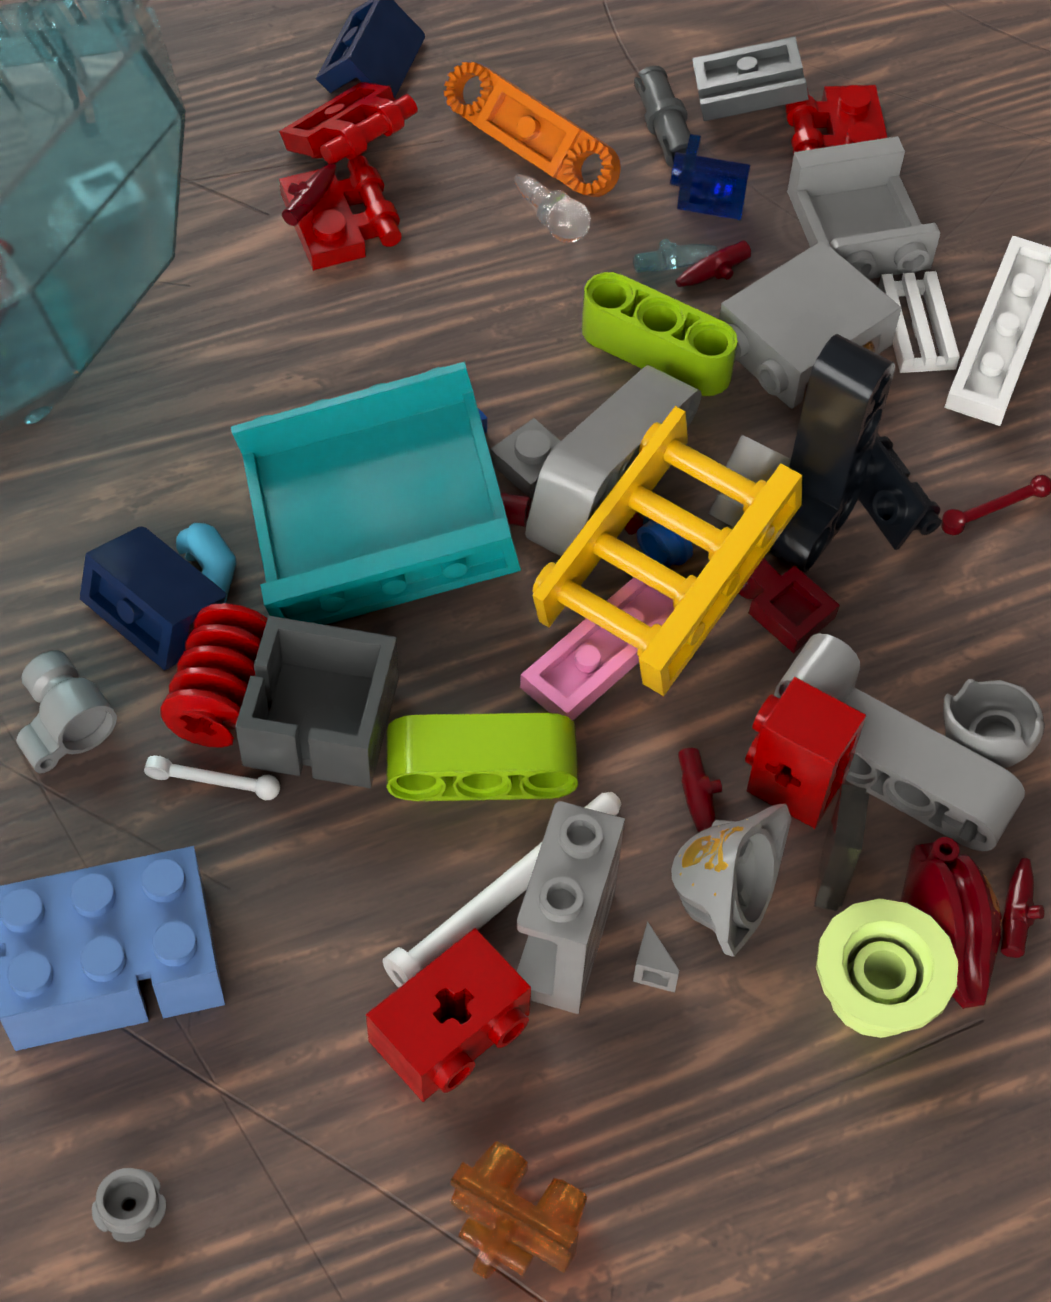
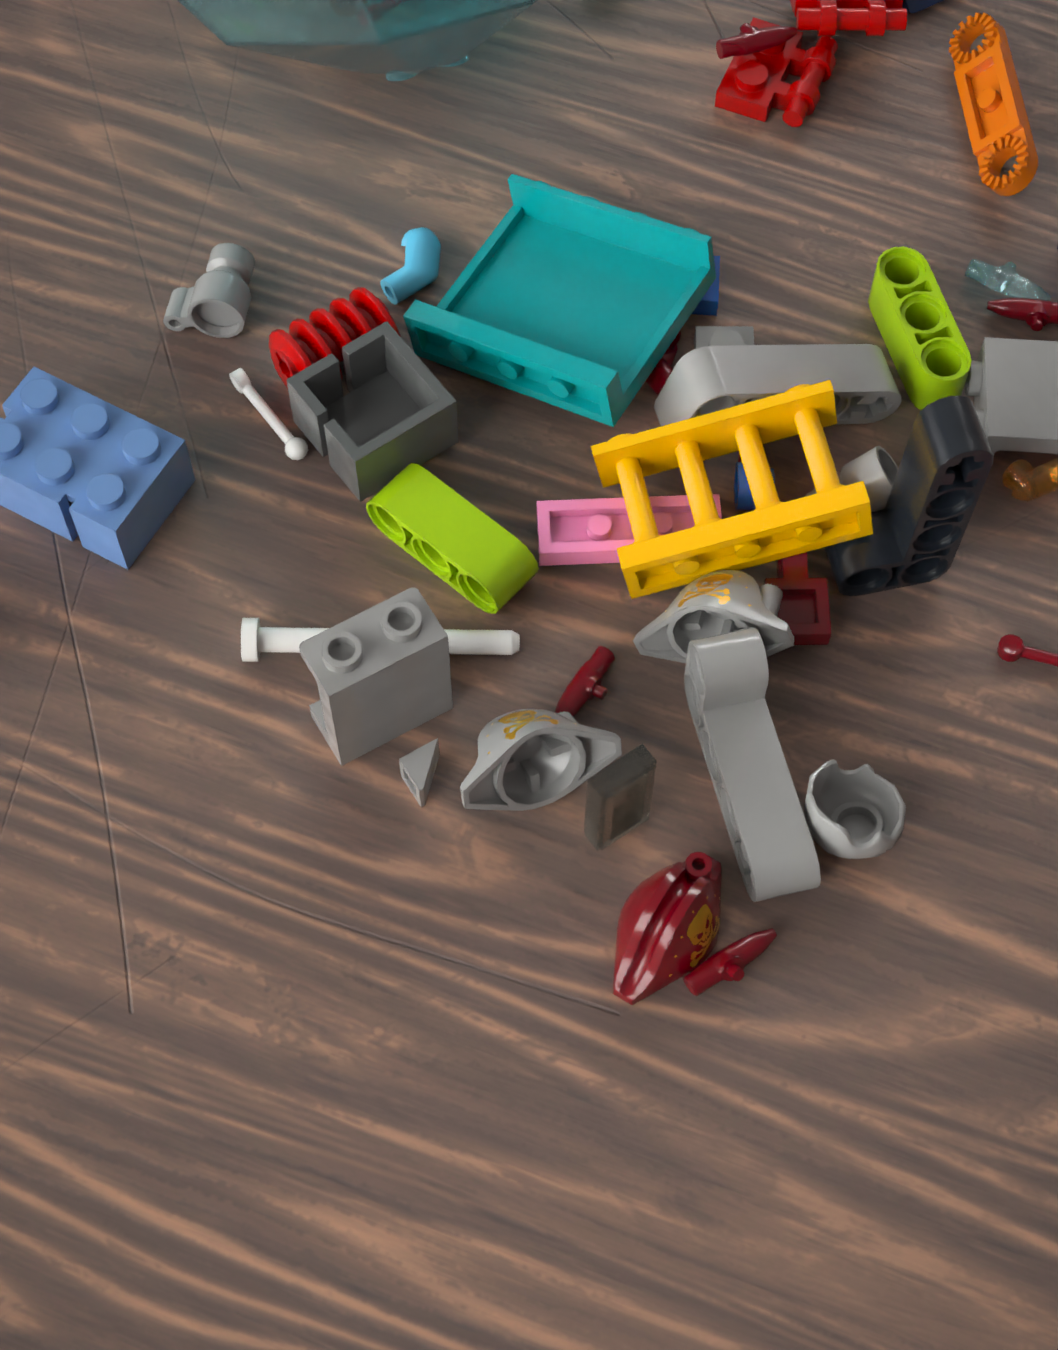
camera: 45 degrees right, 5 degrees up
(147, 593) = (349, 249): dark blue panel -> none
(460, 982) = (218, 673): red brick -> none
(489, 1197) = (160, 876): clear orange hips -> none
(565, 217) = (946, 186): clear bar -> none
(749, 655) = (716, 606): none -> light grey hat
(802, 750) = (670, 707): red brick -> none
(886, 967) = (562, 905): yellowish green piece -> none
(893, 500) = (984, 556): black hinge -> none

